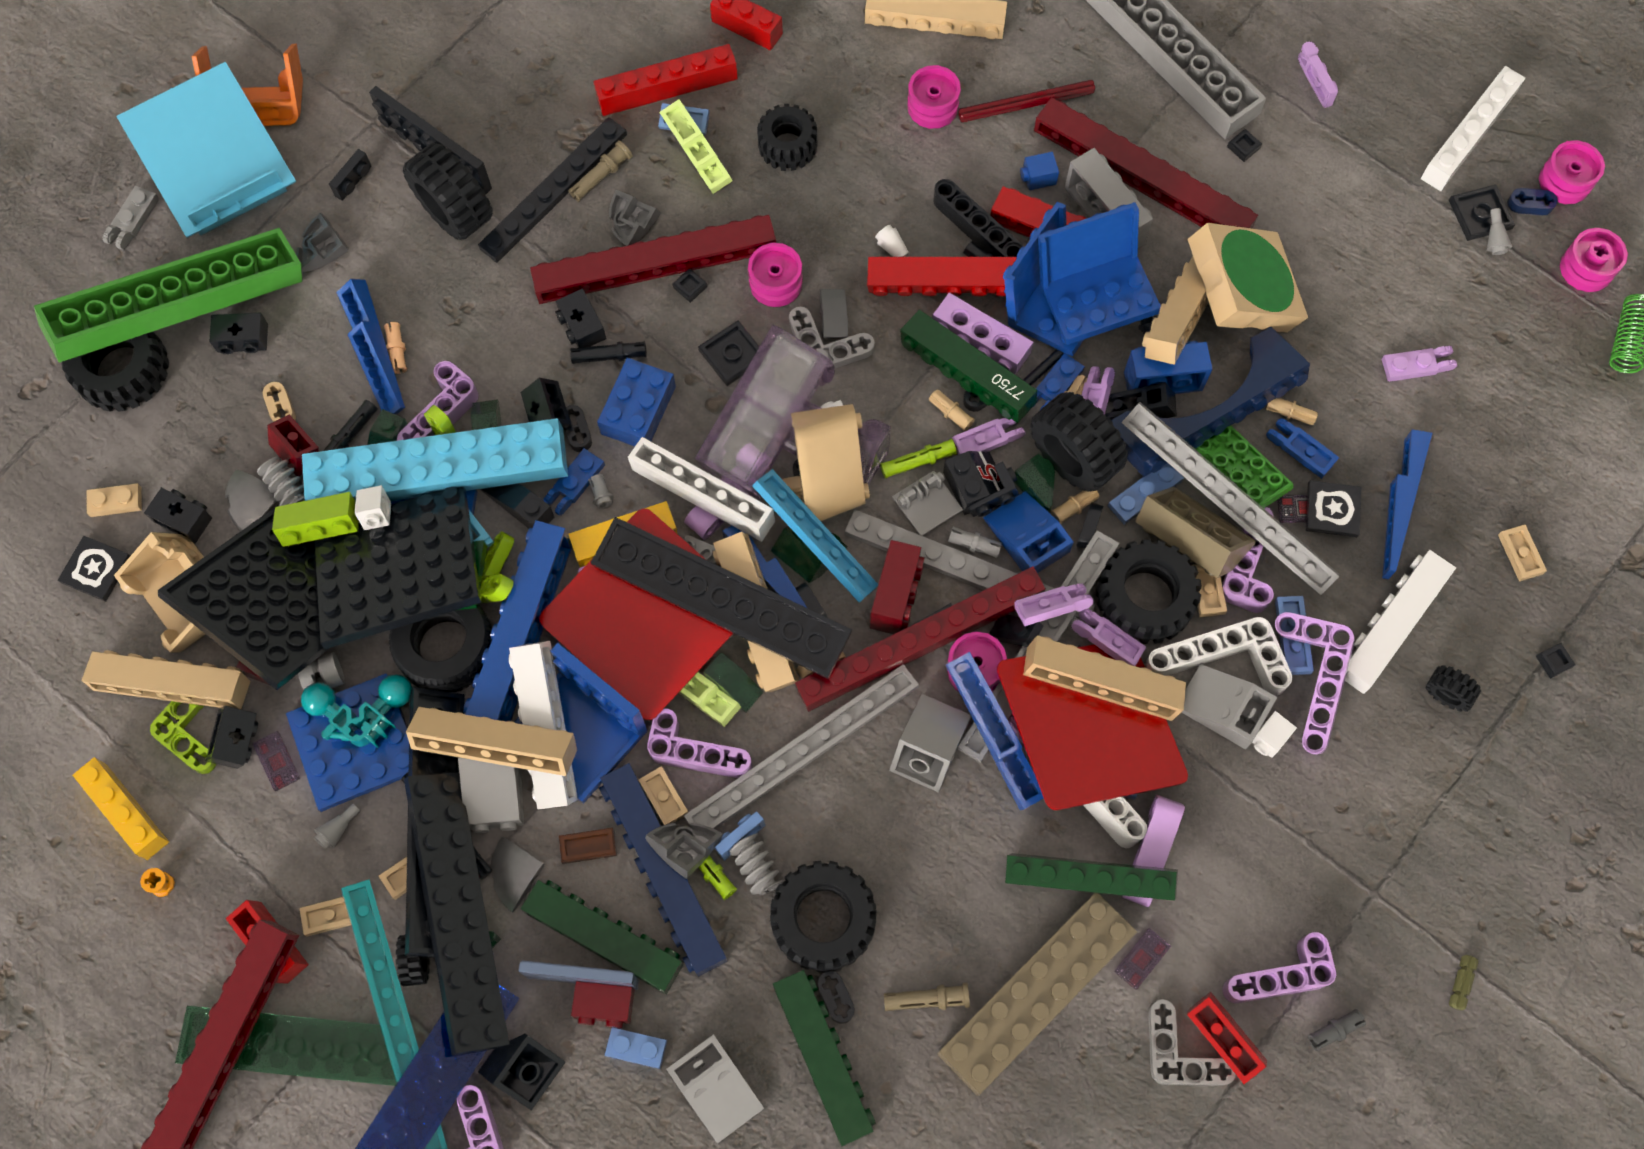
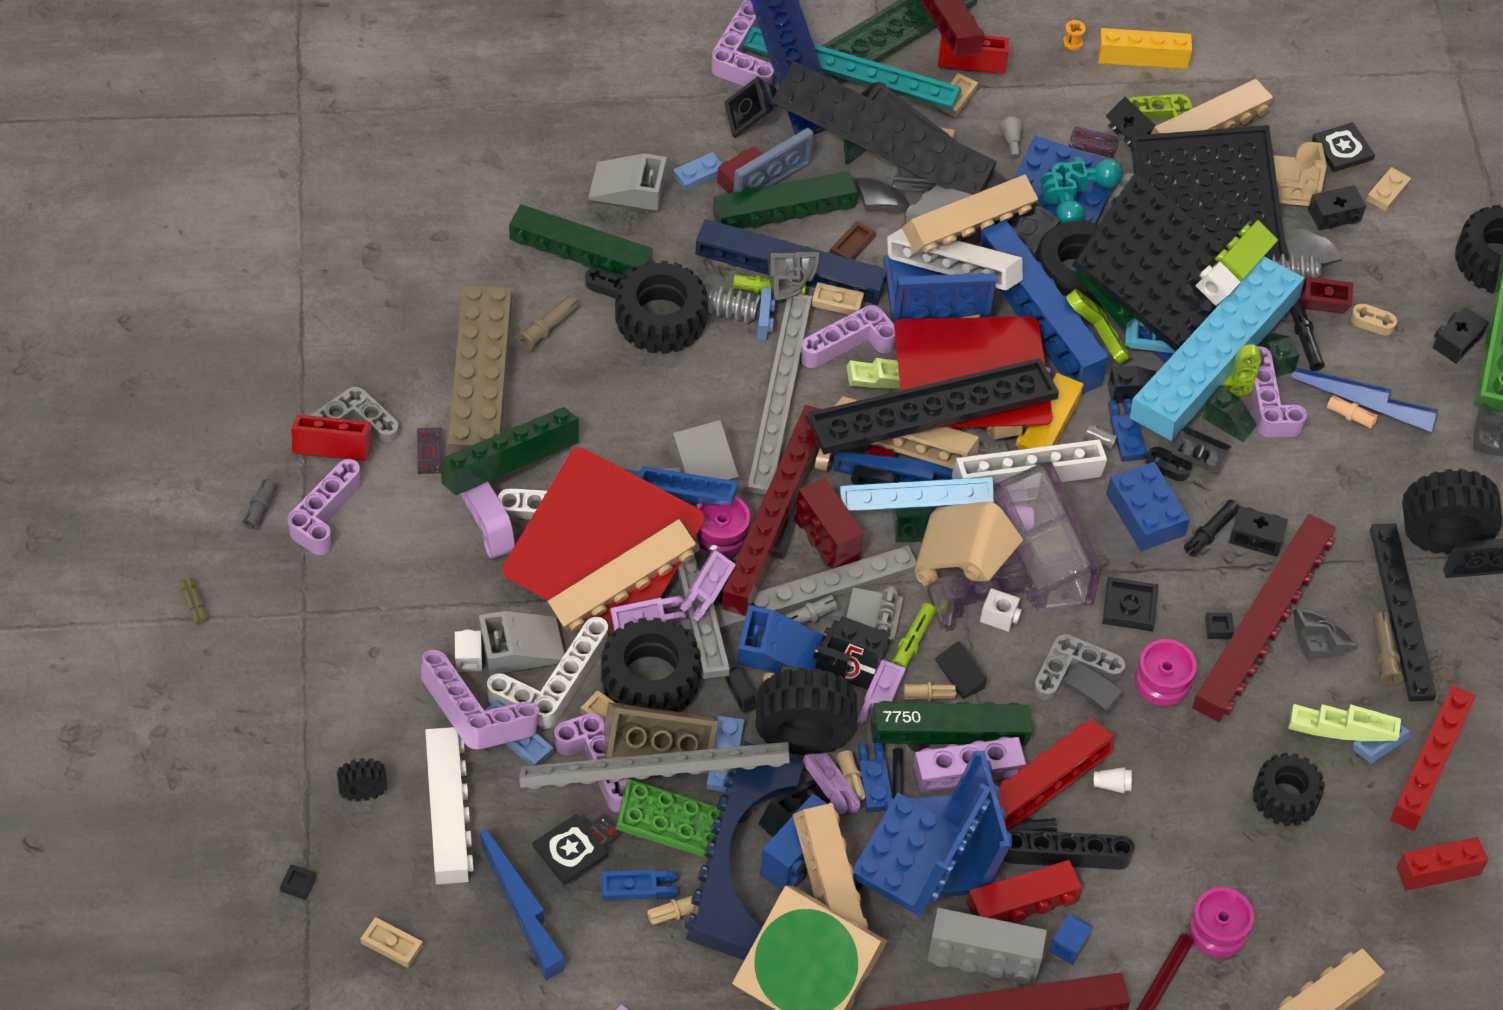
camera: 130 degrees right, 15 degrees down
(733, 681) = (871, 386): clear green slope -> none
(911, 406) = (961, 670): none -> black slope

